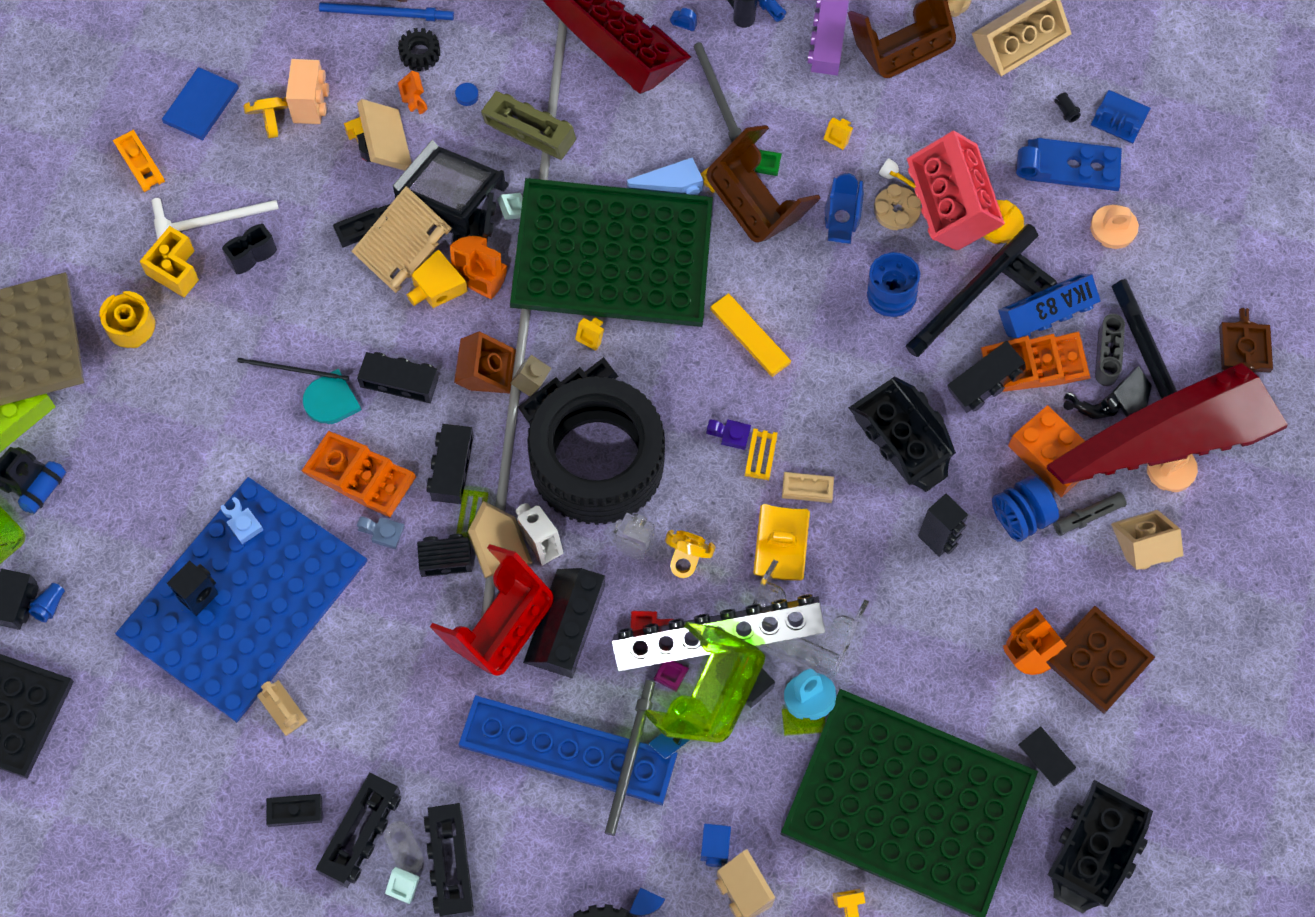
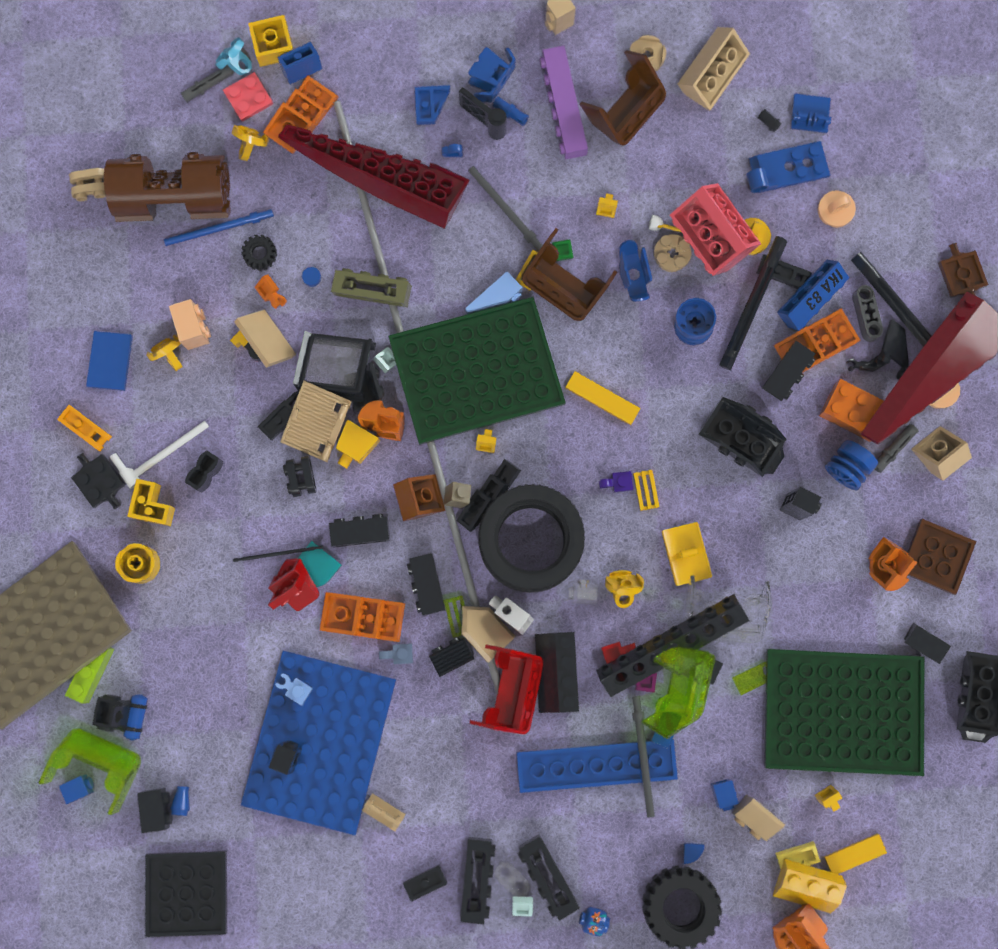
camera: 20 degrees left, 15 degrees up
(126, 221) = (98, 481): none -> black plate
(293, 408) = (292, 586): none -> red piece
(349, 284) = (291, 470): none -> black brick
(807, 487) = (689, 504): tan plate -> none
(810, 695) = (749, 662): medium azure tile -> none

